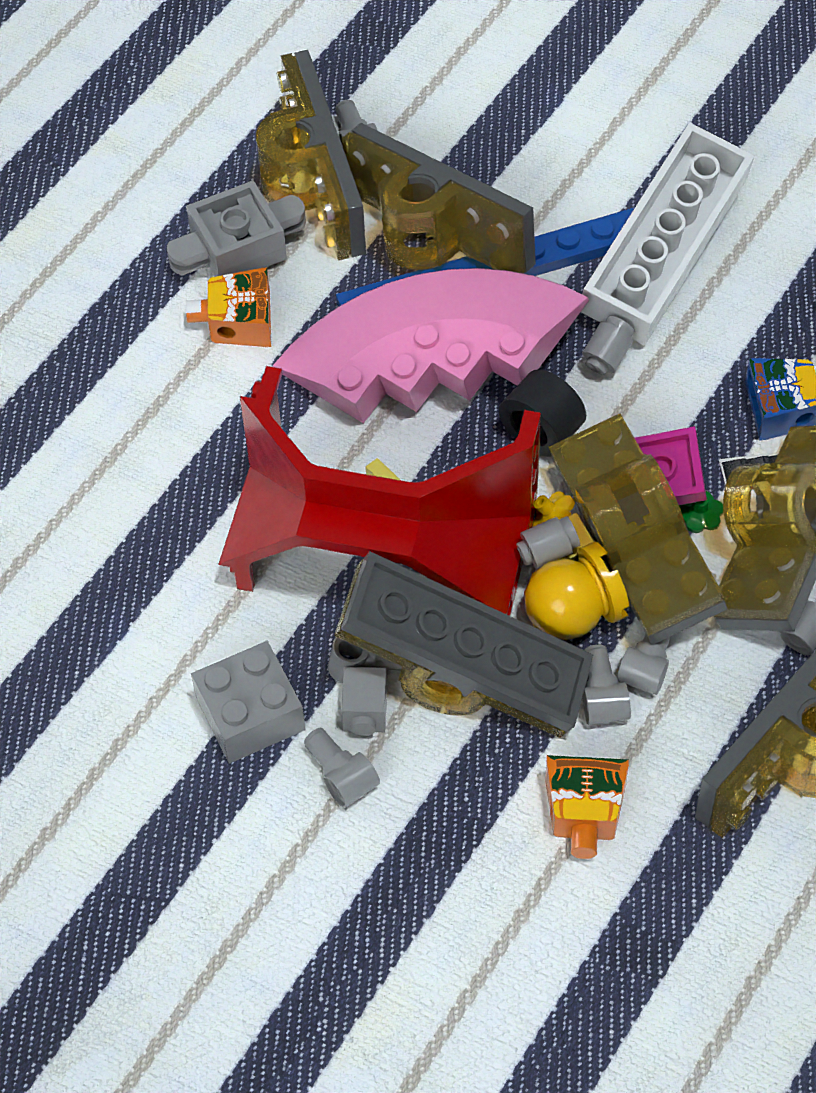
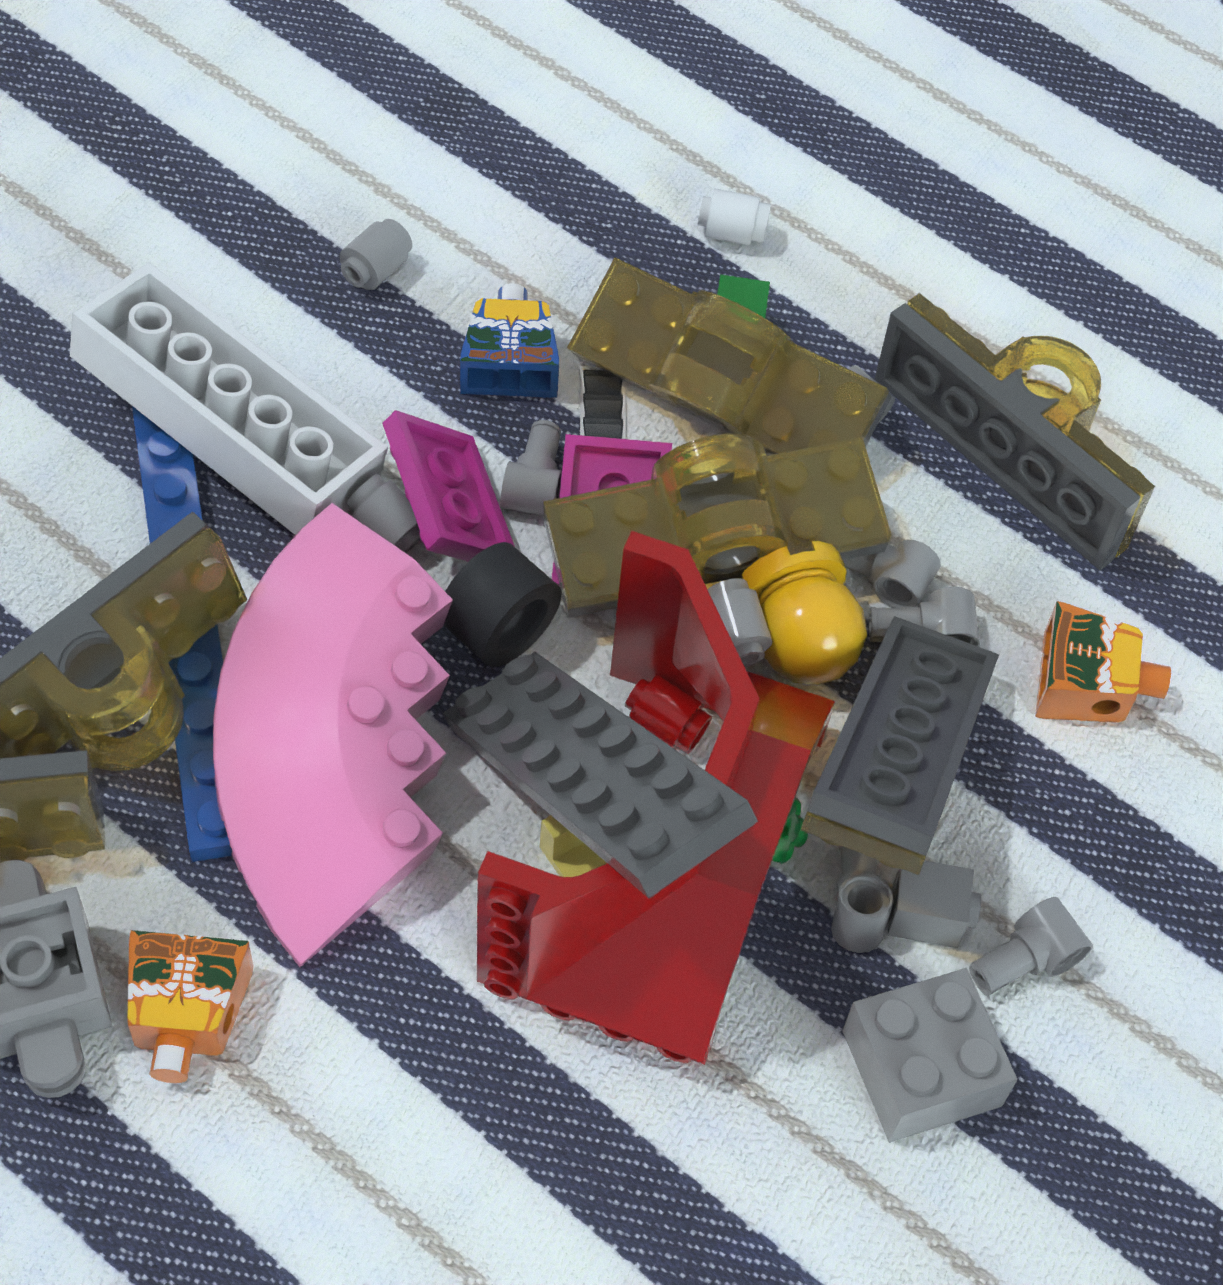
camera: 90 degrees left, 0 degrees up
(374, 438) = (599, 772): none -> dark grey plate
(634, 372) = (446, 487): none -> dark pink plate
(662, 417) = (535, 473): none -> light grey pin

